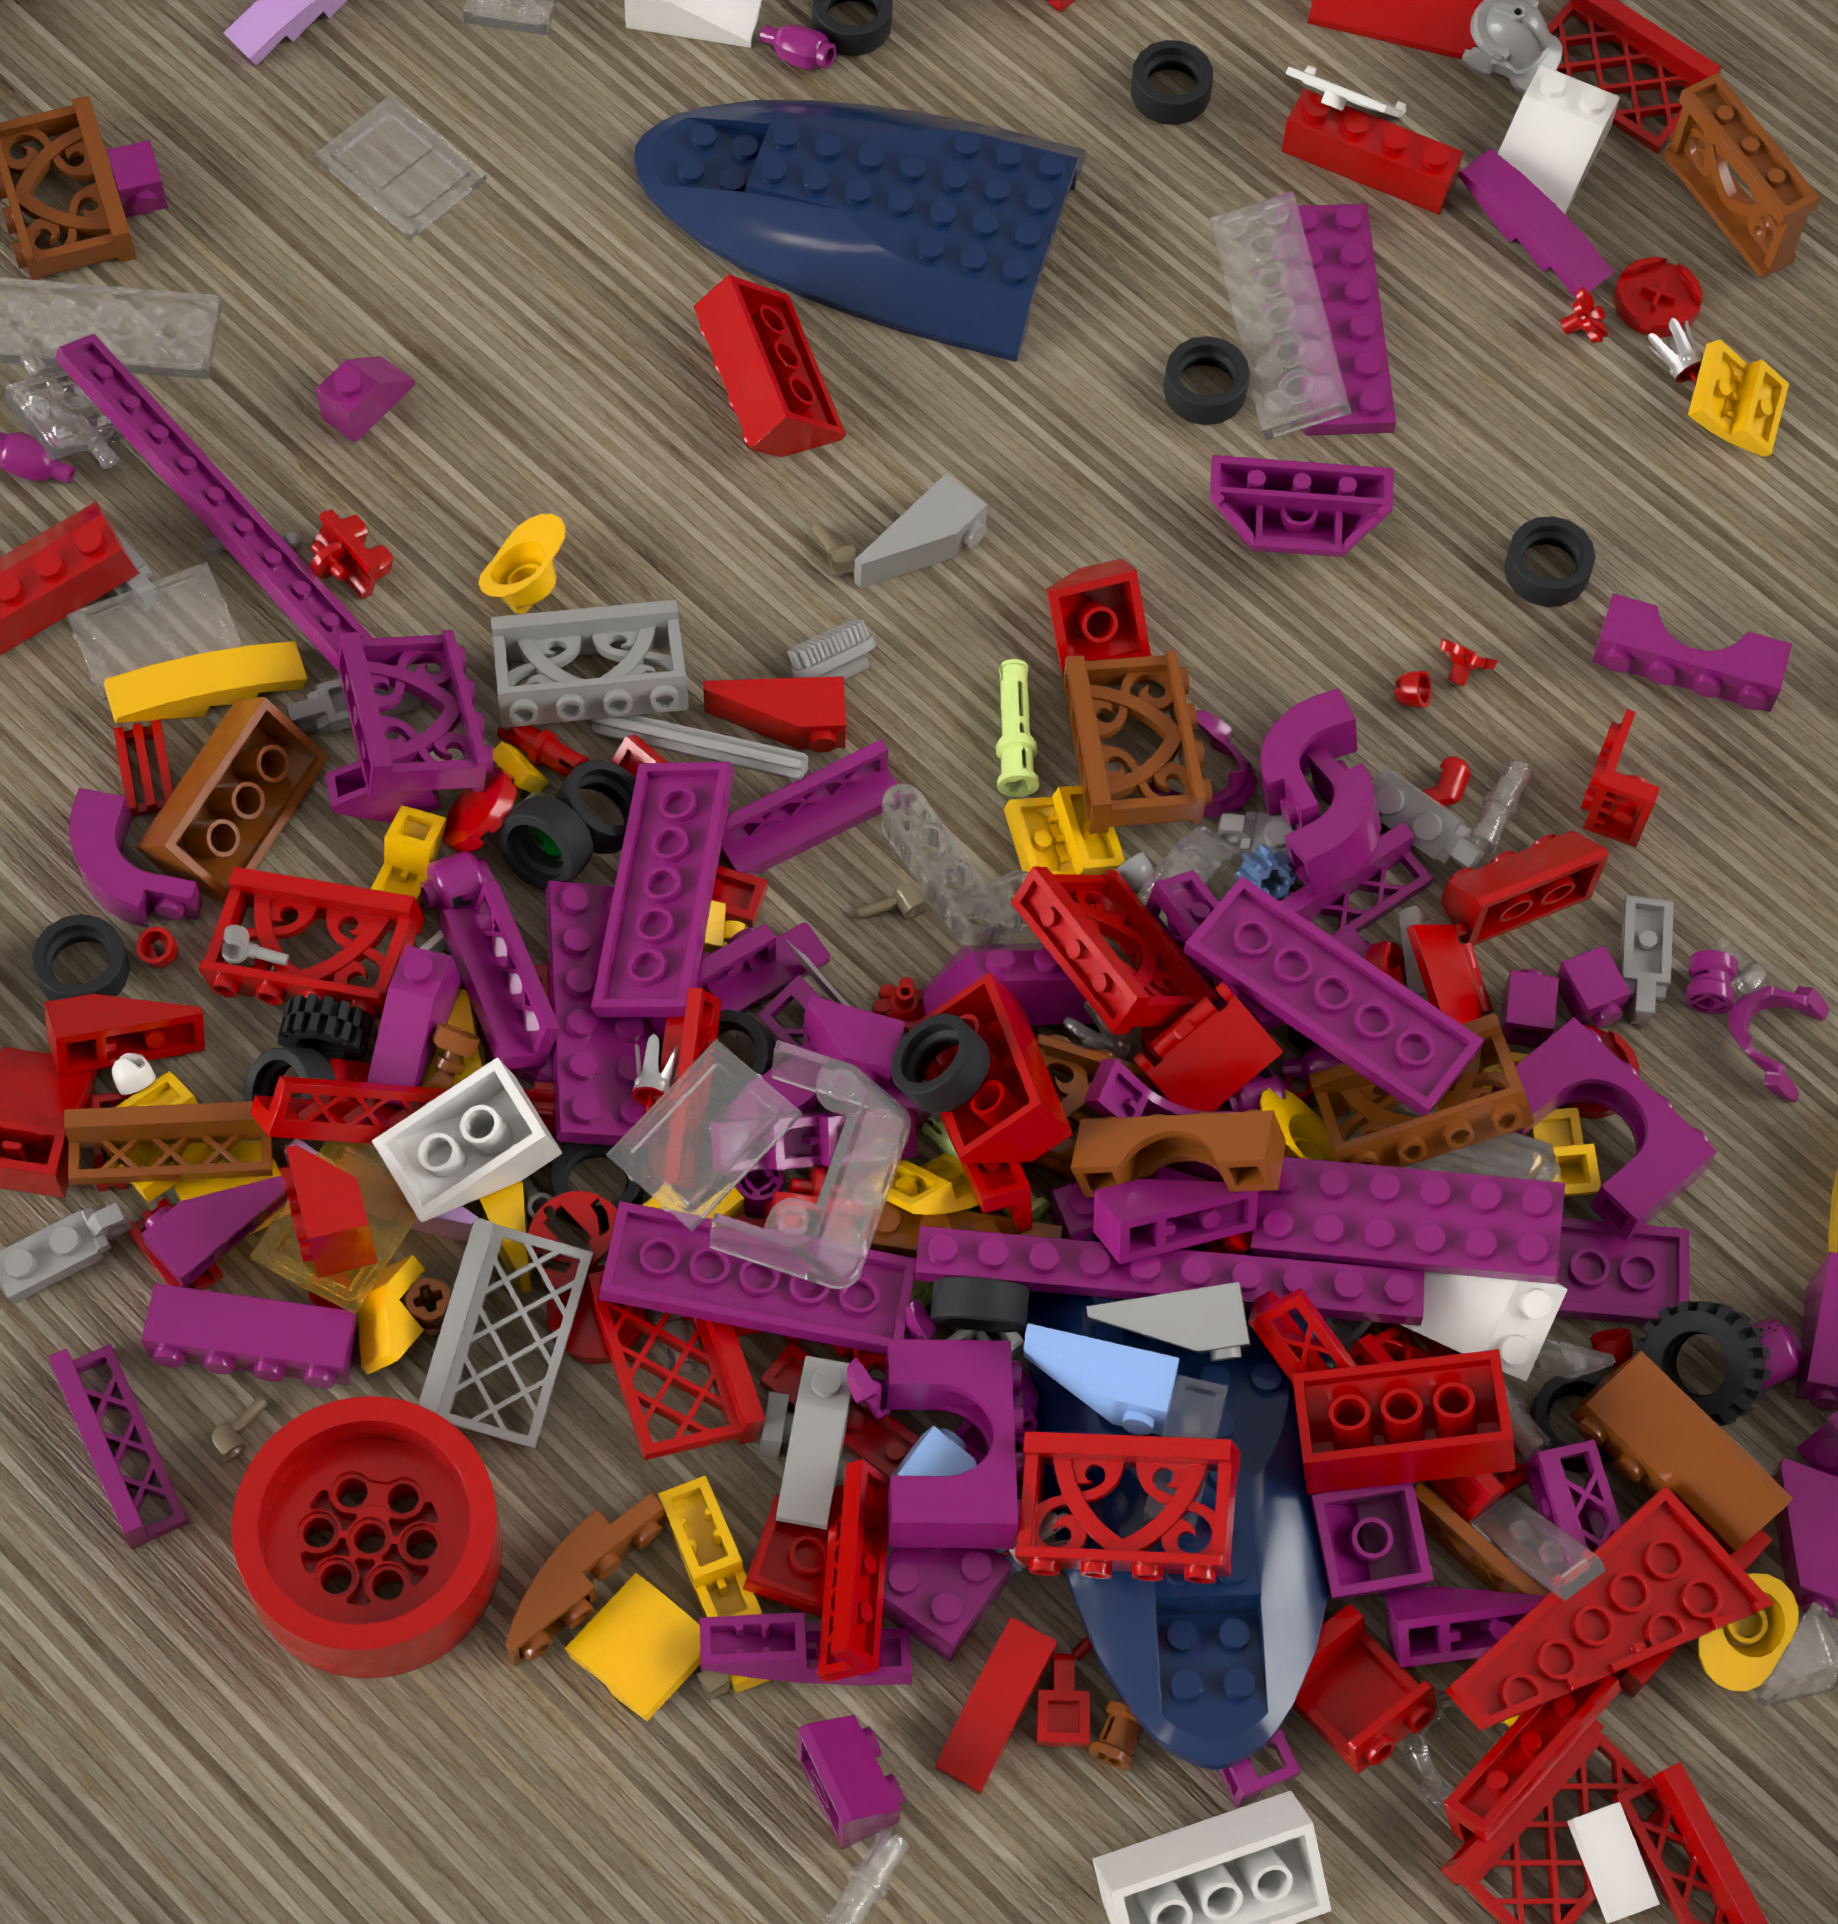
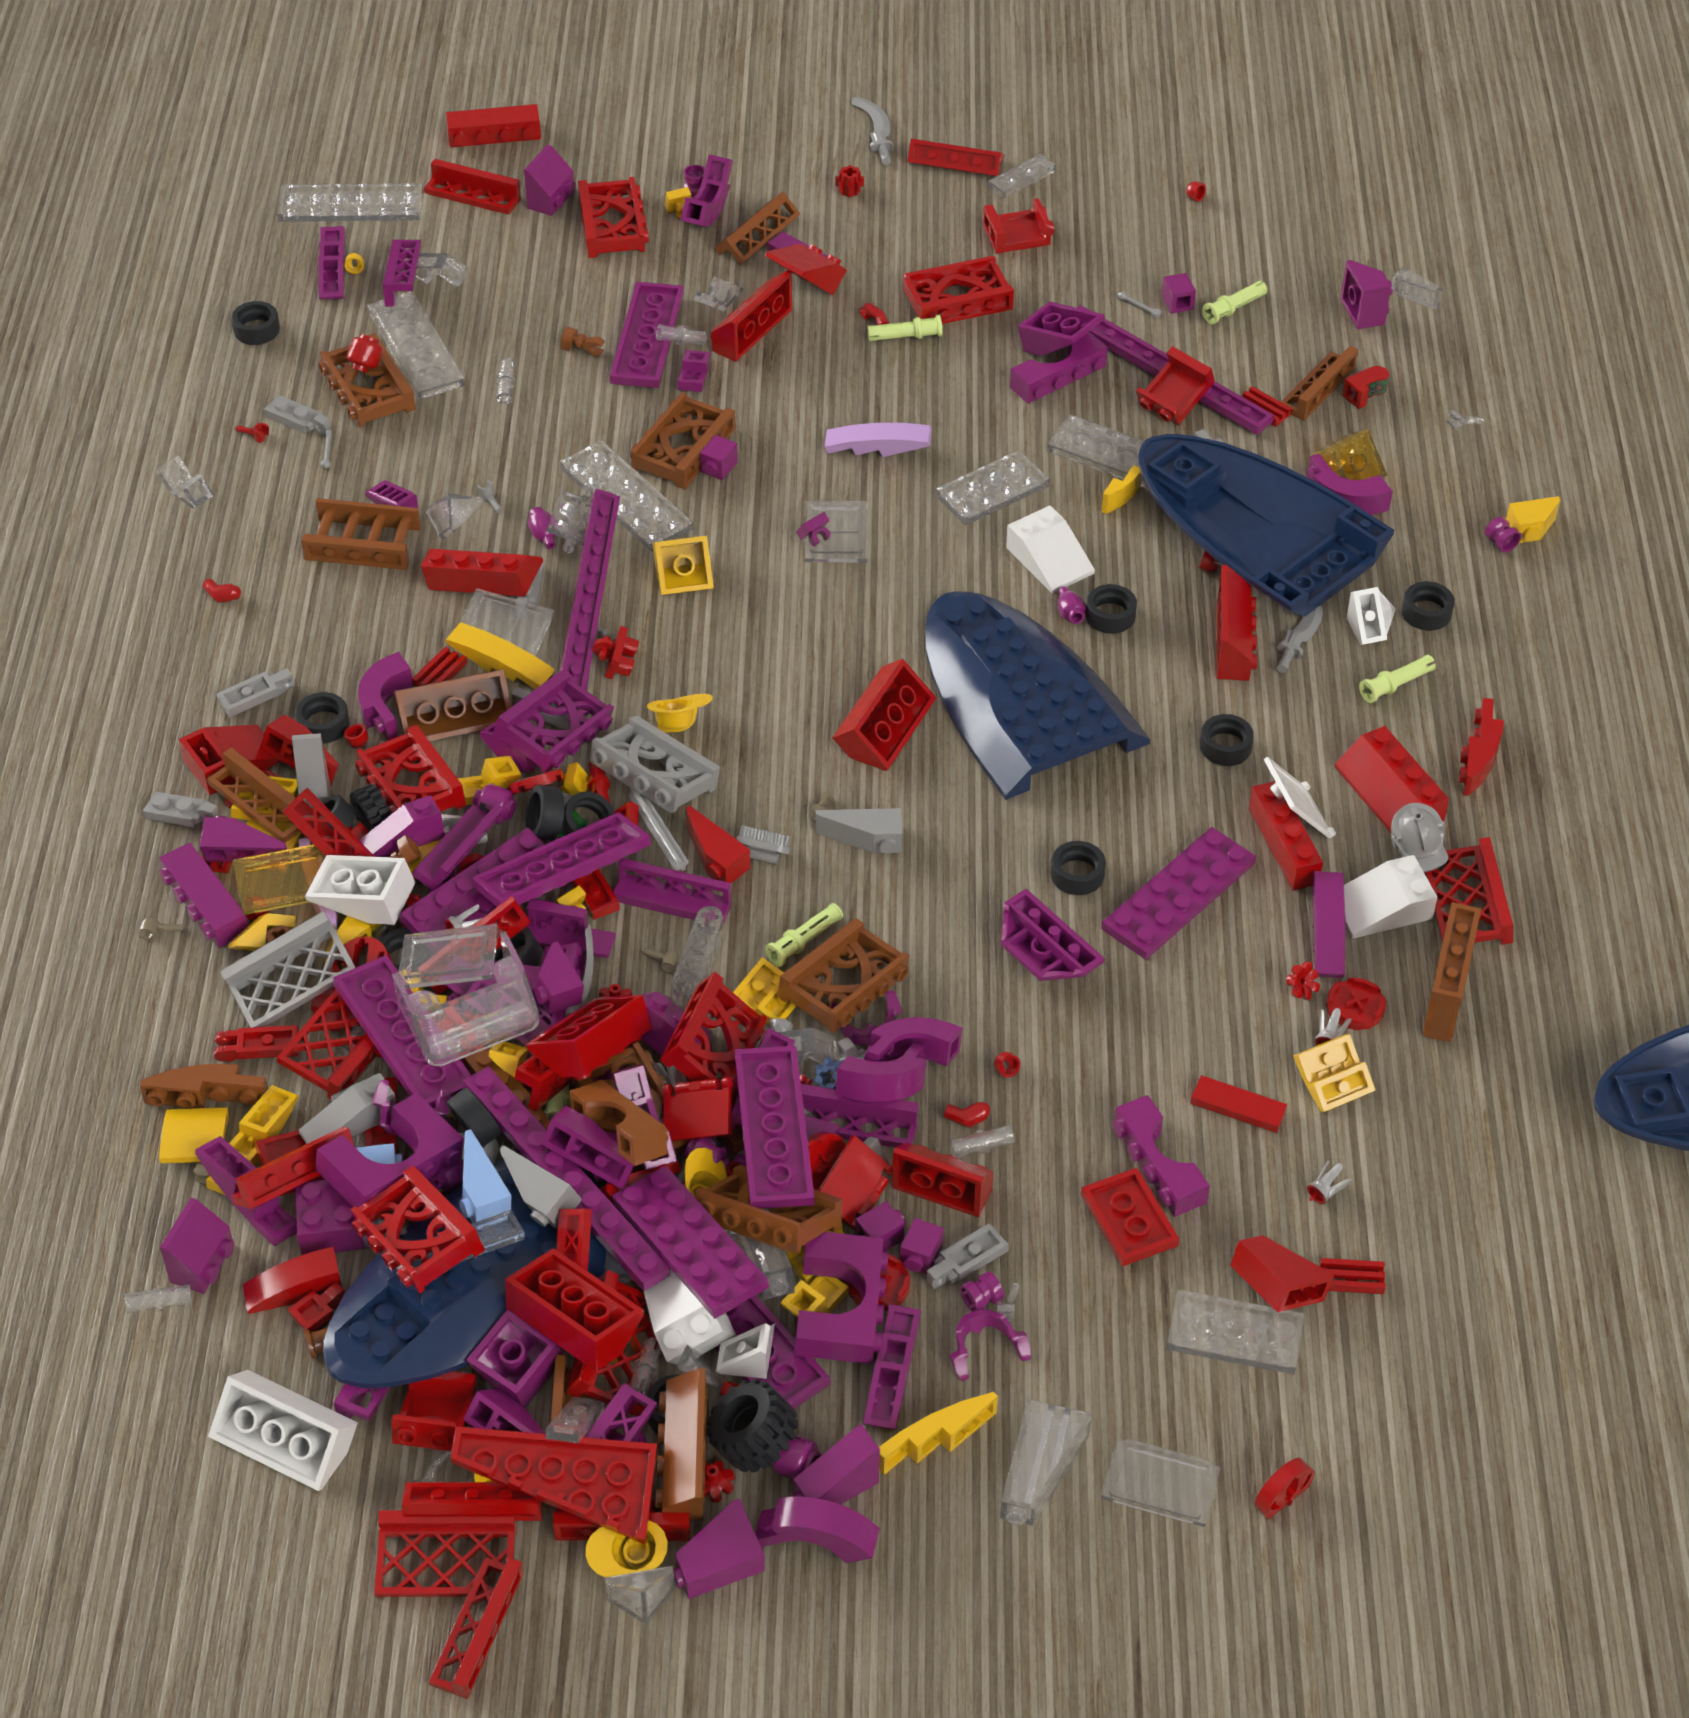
camera: 50 degrees right, 15 degrees down
(98, 1447) = (100, 891): magenta fence -> none
(132, 1073) = (285, 768): white hinge -> none
(201, 1052) = (311, 766): none -> light grey slope
(238, 948) = (381, 754): light grey hand -> none
(276, 363) = (683, 565): none -> yellow slope
(298, 1489) = (145, 998): red wheel -> none
(327, 1214) = (266, 861): red slope -> none
(361, 394) = (703, 599): magenta slope -> none
(388, 184) = (813, 527): none -> magenta tile
(566, 1455) = (254, 1042): none -> red hinge
(923, 1045) = (570, 1006): black tyre -> none
(1099, 613) = (898, 916): red slope -> none
(1280, 316) = (1146, 867): clear plate -> none
(1435, 827) = (935, 1114): light grey hinge -> none
(1464, 661) = (1045, 1071): red plant -> none
(1557, 533) = (1139, 1082): black tyre -> none
(1597, 1277) = (747, 1353): none -> white slope
(1613, 1862) = (450, 1584): white tile -> none
(1614, 801) = (1042, 1164): red bracket -> none
(1685, 521) = (1238, 1103): none -> red tile
(1740, 1167) = (892, 1367): none -> magenta slope
(1742, 753) = (1129, 1216): none -> red plate

